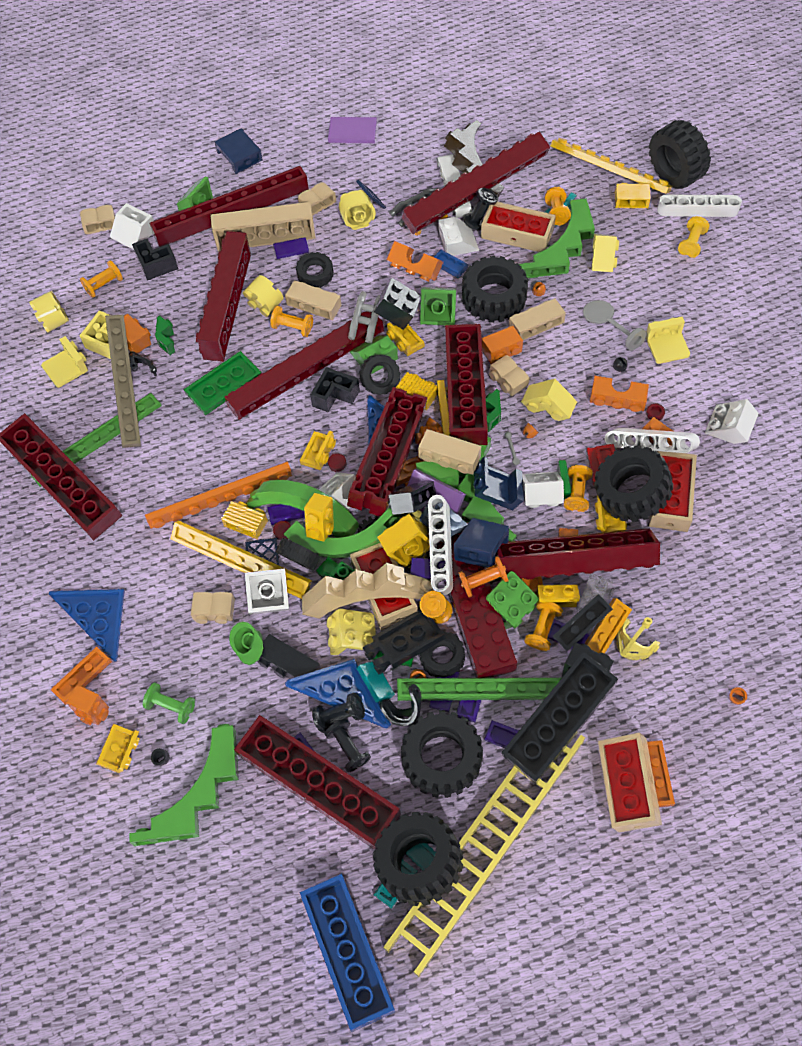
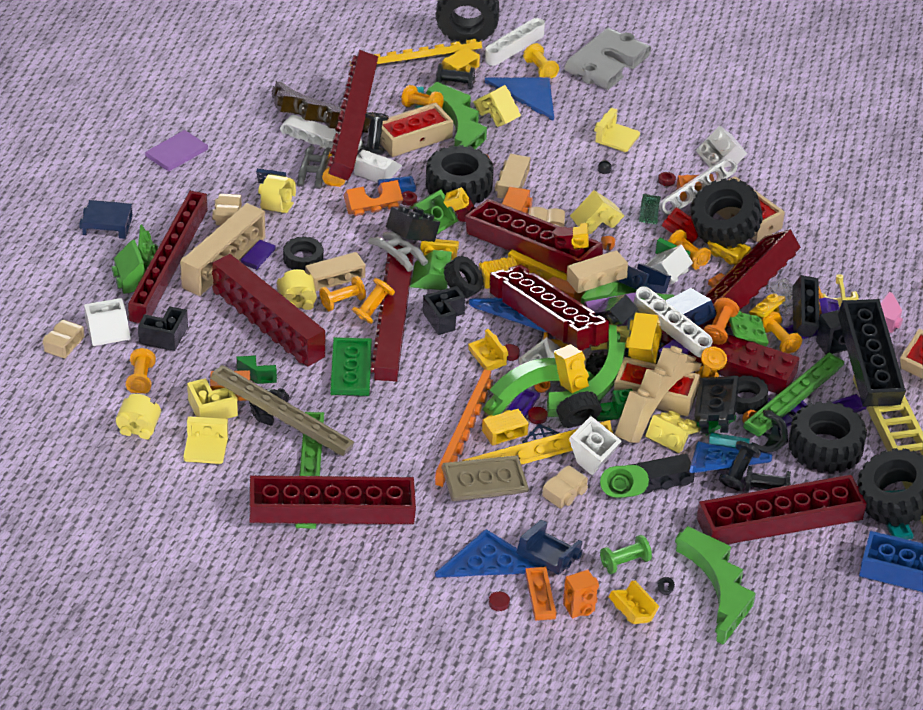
camera: 55 degrees left, 20 degrees down
(53, 653) = (499, 601): none -> dark red tile
(131, 646) = (547, 550): none -> dark blue panel
(171, 549) = (484, 478): none -> dark tan tile
(221, 185) = (146, 247): none -> bright green hinge
(305, 339) = (373, 300): none -> light orange hose
(445, 280) = (409, 198): none -> dark red tile
(460, 311) = (459, 202): none -> yellow leg
(470, 408) = (571, 237): none -> leg
(595, 428) = (650, 209): none -> clear green brick
(602, 194) = (455, 76): none -> black hose
(602, 312) = (547, 147): light grey piece -> none
(604, 394) = (643, 178): orange arch -> none
(605, 641) = (828, 305): none -> dark purple tile
(653, 256) = (528, 90): none -> blue tile
(658, 688) = (892, 312): none -> bright pink slope
(772, 264) = (606, 56): none -> light grey connector

